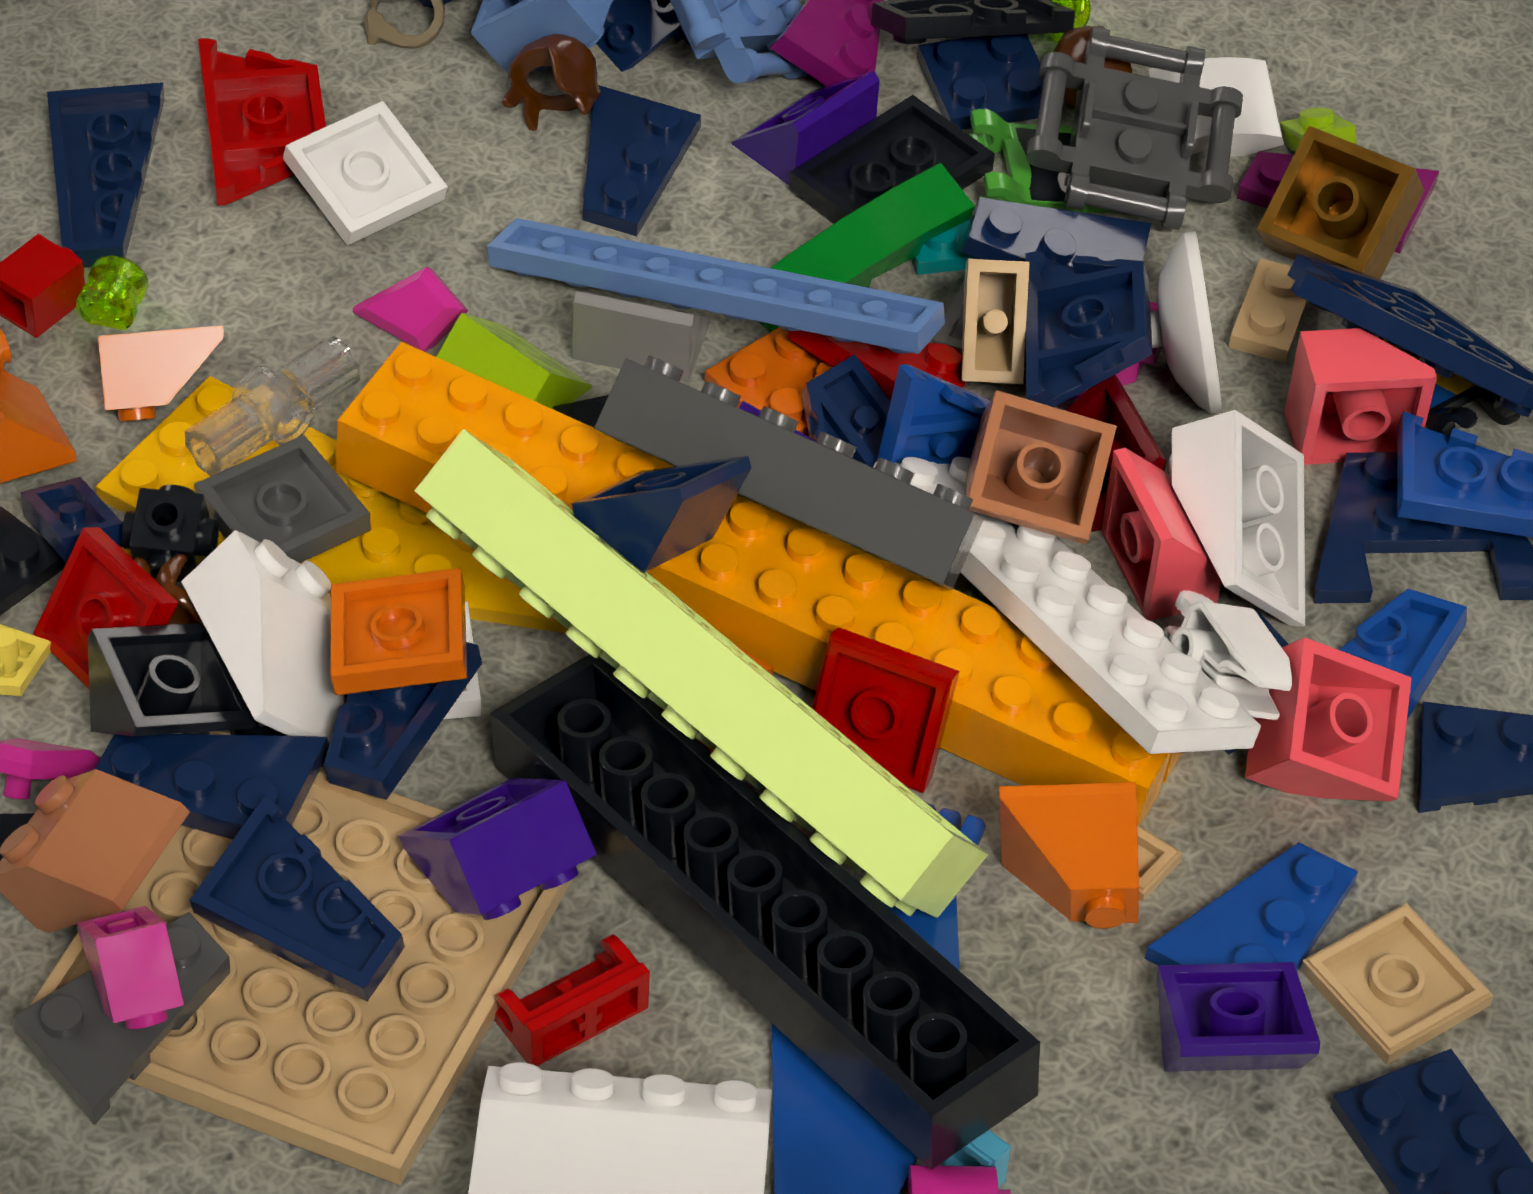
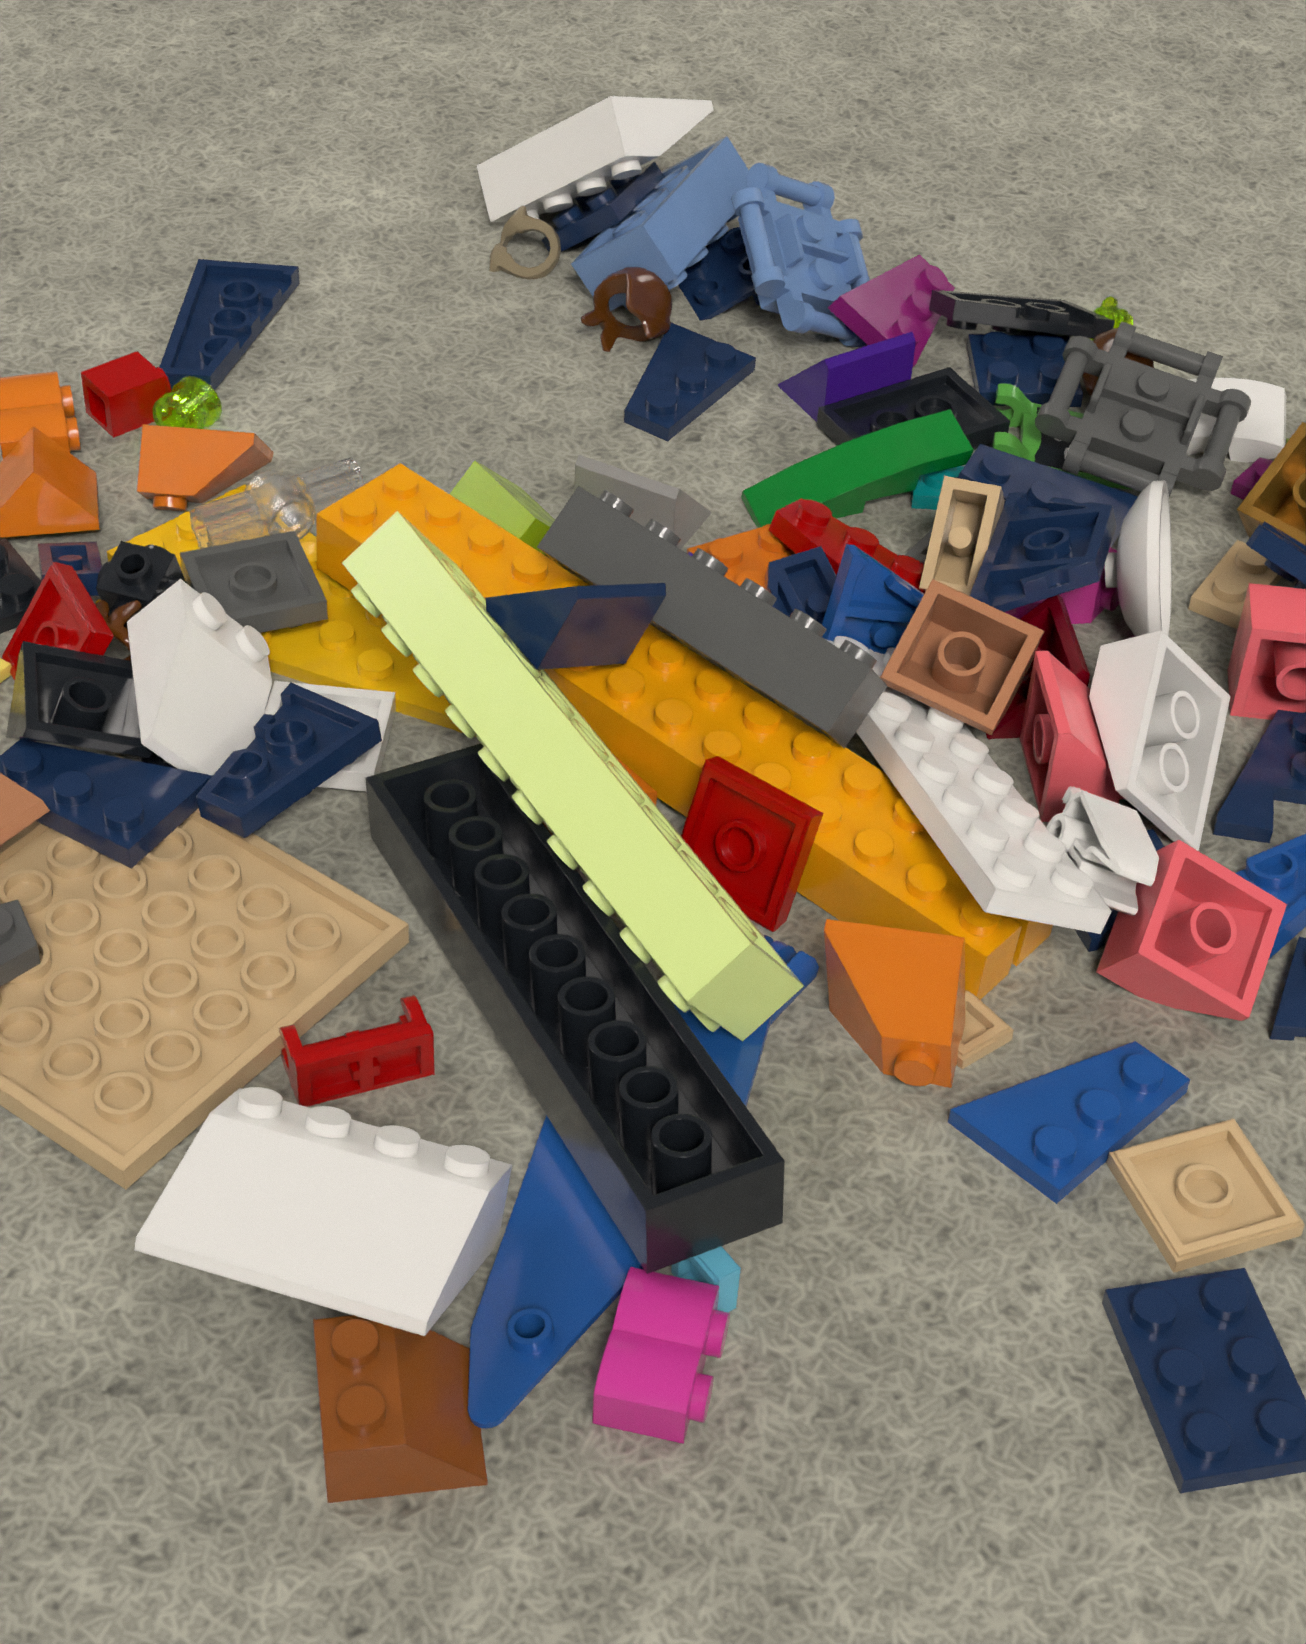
camera: 15 degrees right, 5 degrees down
(252, 115) = (370, 307): red wing -> none
(295, 905) = (119, 911): dark blue wing -> none
(365, 172) = (442, 354): white plate -> none
(398, 631) = (305, 694): orange plate -> none
(415, 309) = (443, 457): dark pink piece -> none
(501, 845) = (334, 896): dark purple slope -> none
(718, 286) = (726, 478): medium blue plate -> none
(1234, 1017) = (1018, 1192): dark purple slope -> none

